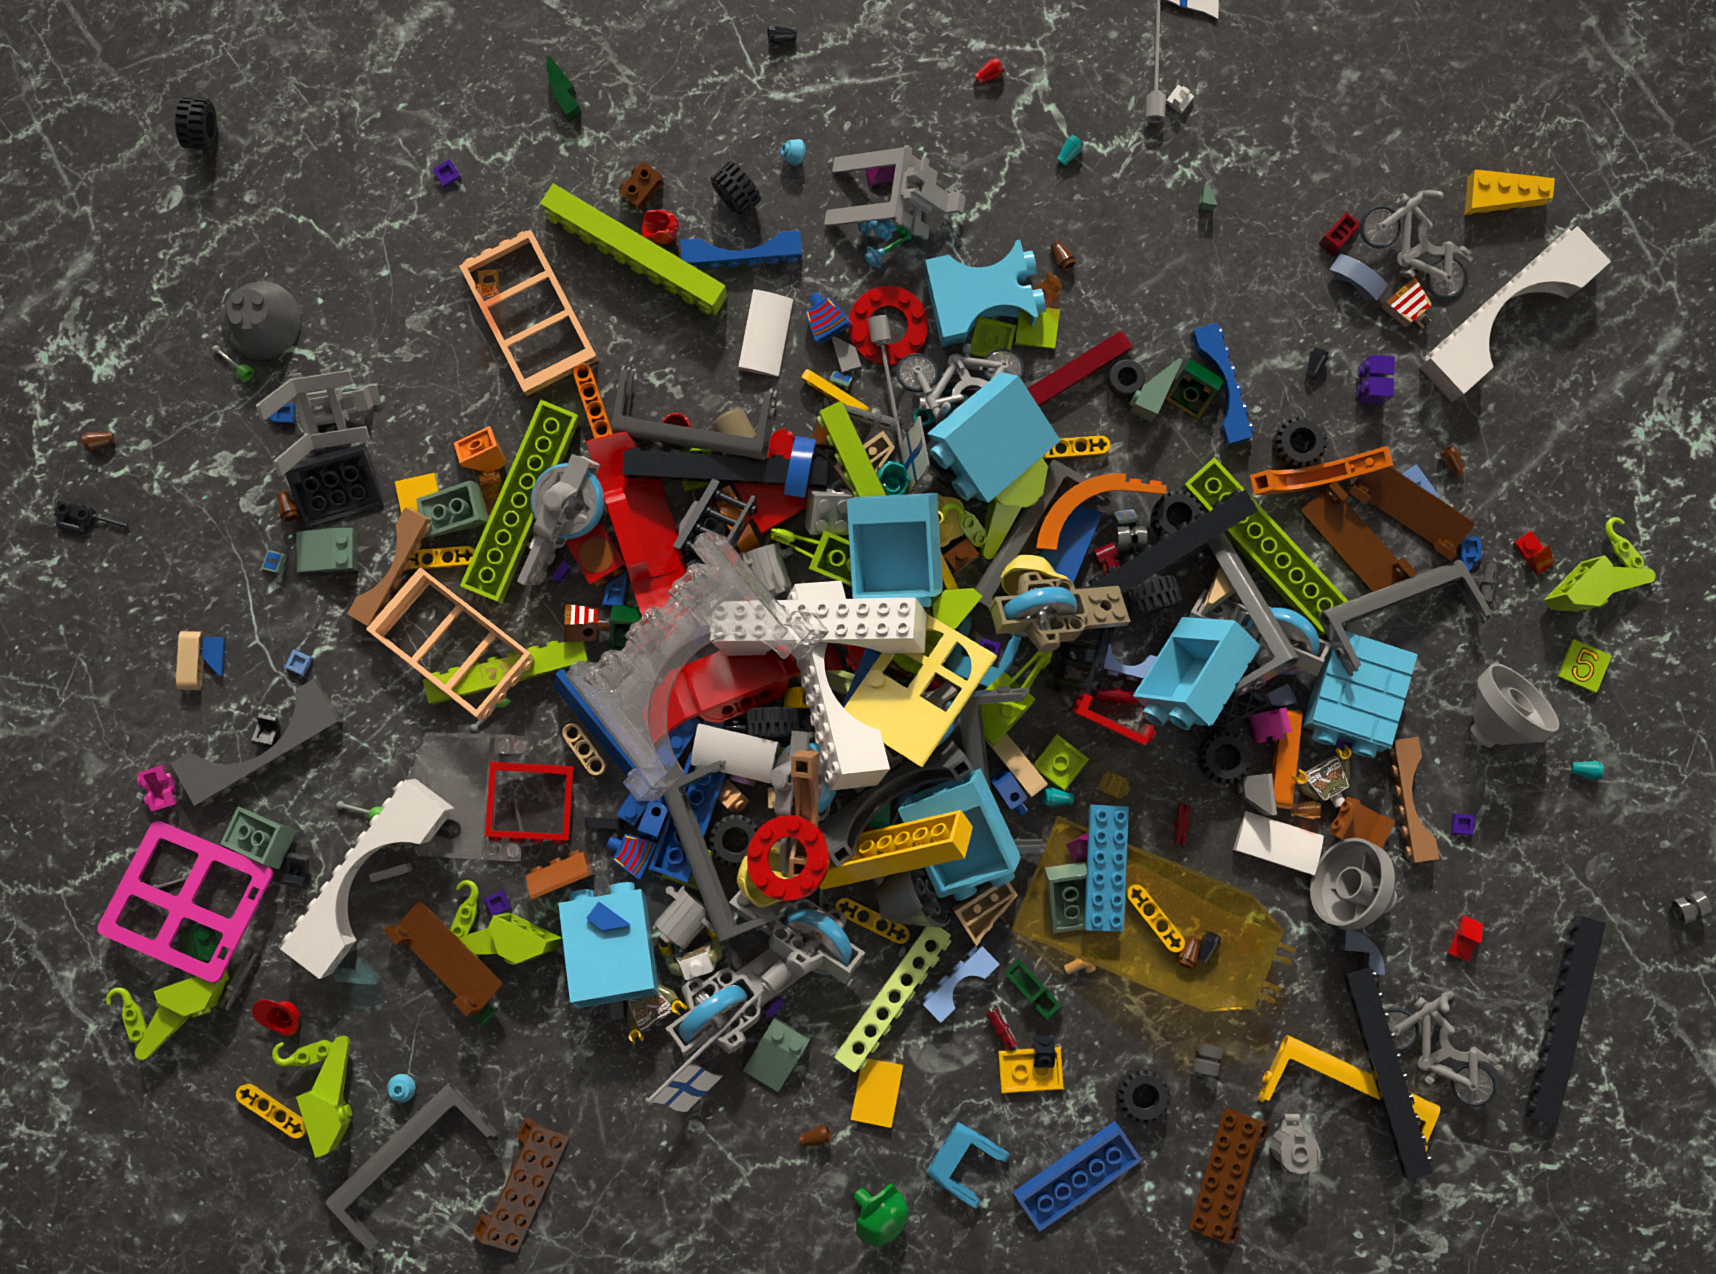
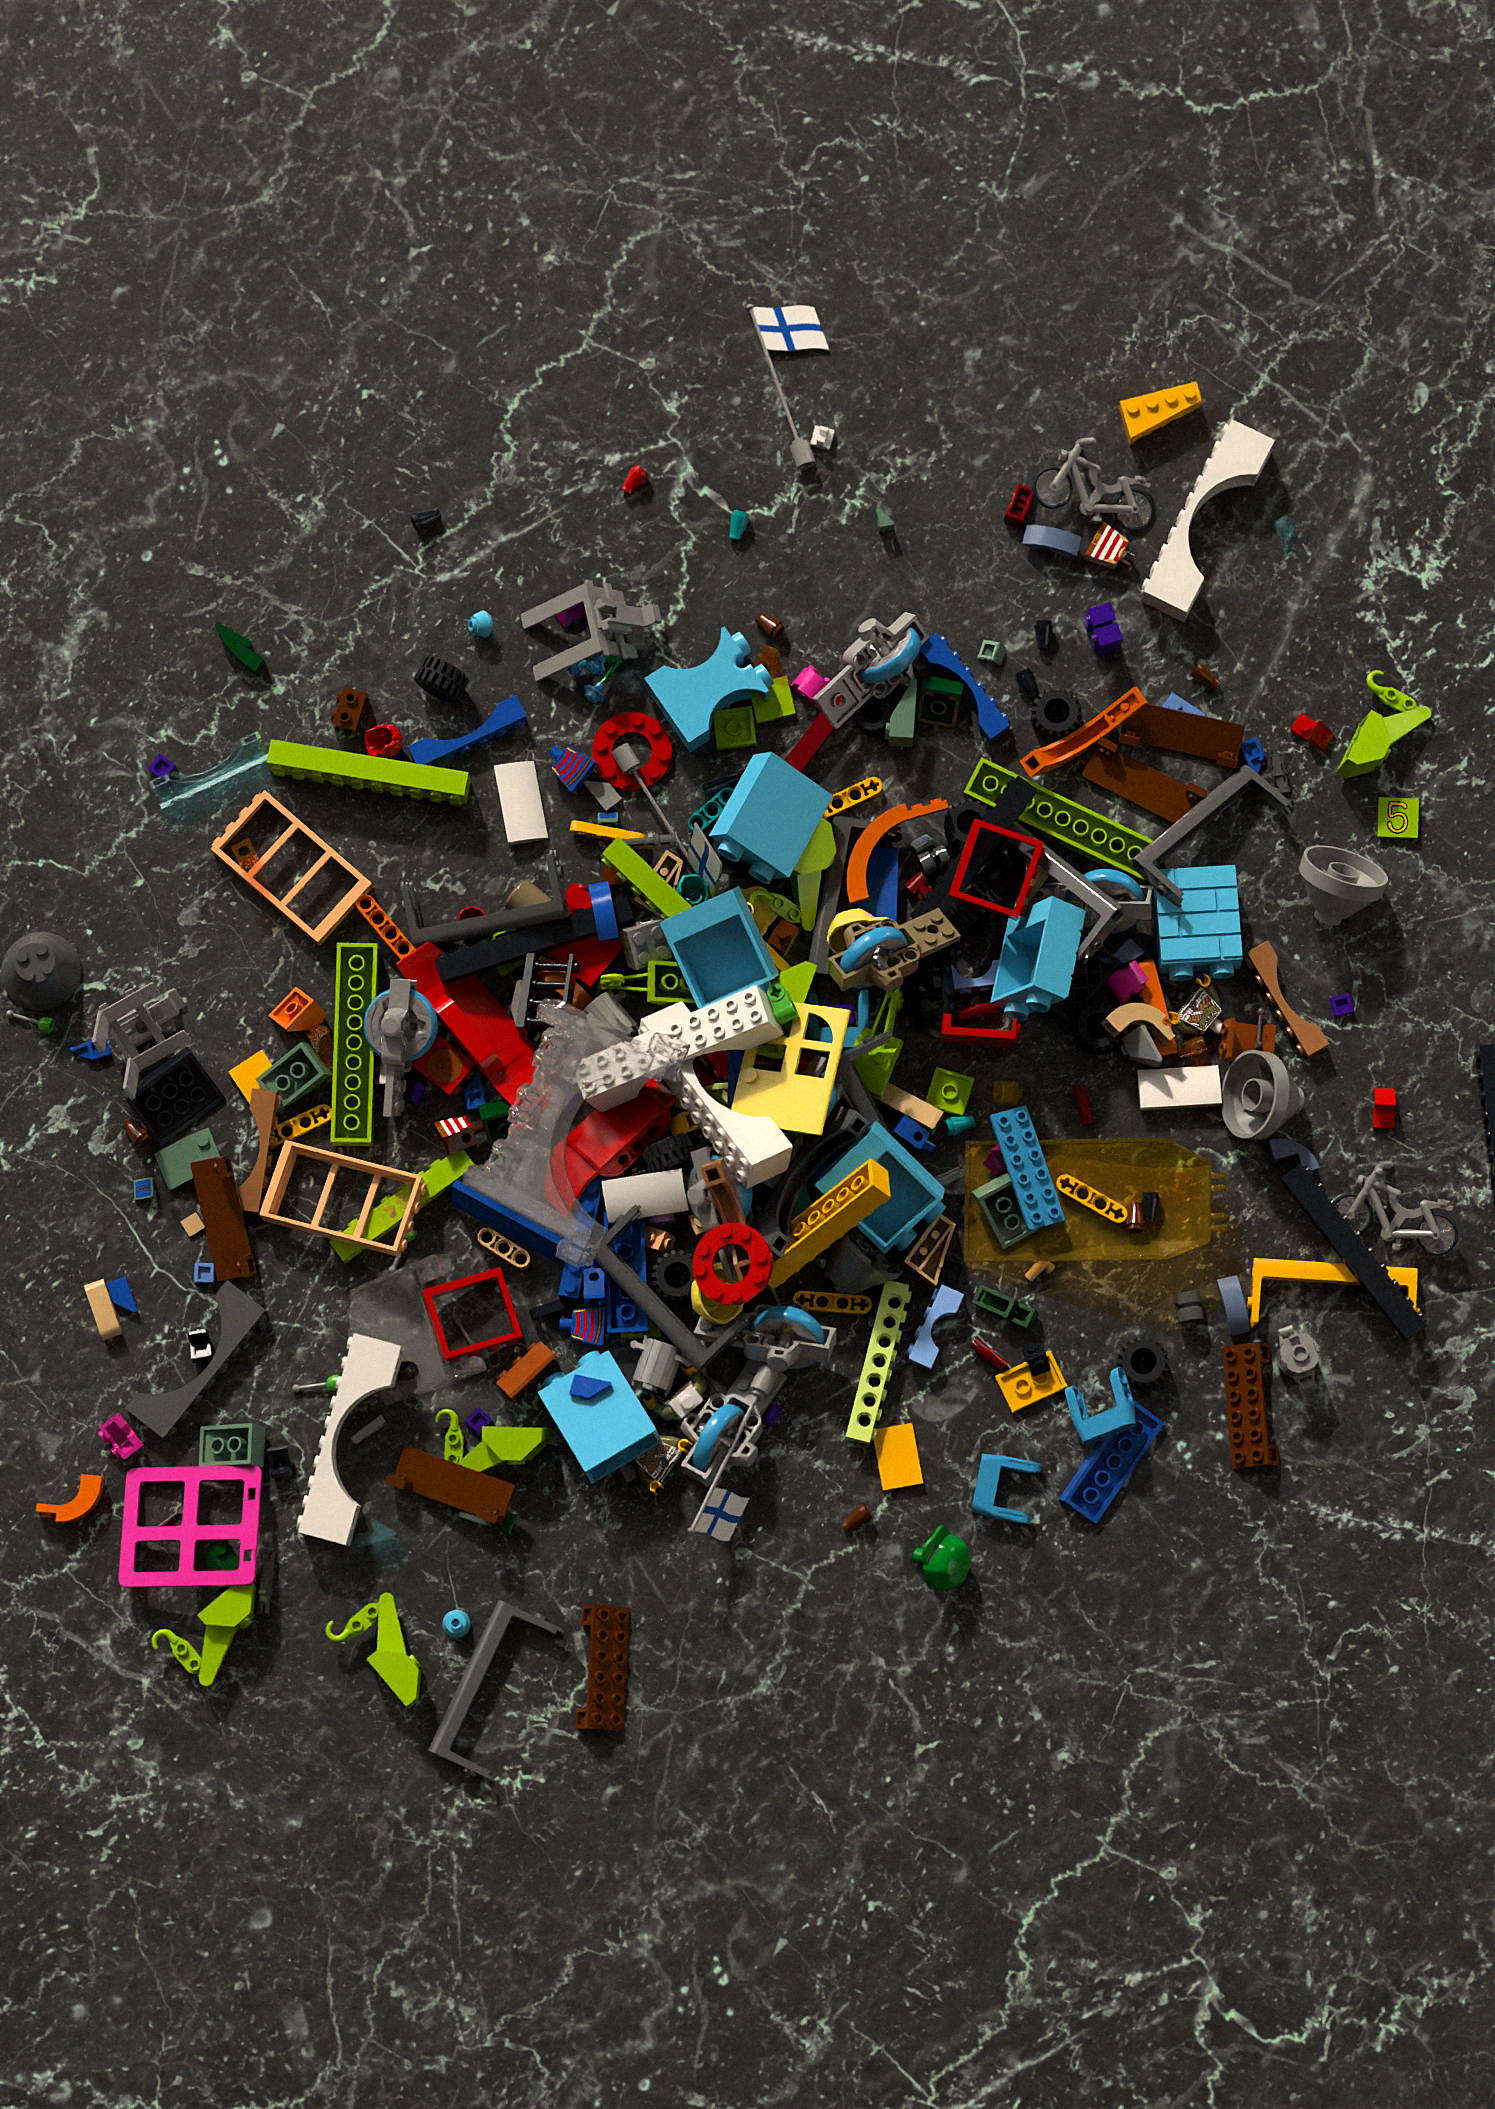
camera: 15 degrees left, 5 degrees down
(104, 833) = (85, 1501): none -> orange arch
(270, 1114) = (344, 1692): yellow beam -> none
(276, 1016) = (316, 1600): red piece -> none
(306, 612) = (192, 1224): none -> tan piece
(332, 619) = (223, 1218): none -> reddish brown bracket
(446, 195) = (246, 754): none -> clear light blue arch
(776, 1054) = (791, 1457): sand green slope -> none
(920, 374) = (680, 784): piece -> none
(933, 626) = (783, 1005): none -> bright green piece
(1081, 330) = (809, 684): none -> dark pink cylinder
(1088, 1144) = (1108, 1422): none -> dark azure connector
(1152, 326) = (878, 659): none -> light grey piece
(1162, 551) = (1026, 888): none -> red window
(1252, 1073) = (1234, 1305): none -> sand blue brick
(1260, 361) = (992, 652): none -> sand green slope
(1270, 762) = (1138, 1014): none -> tan arch
(1283, 402) = (1027, 682): none -> black cone
(1370, 831) = (1258, 1043): none -> dark grey hinge
(1583, 347) = (1285, 526): none -> clear light blue tile
(1591, 769) = (1436, 911): teal cone -> none

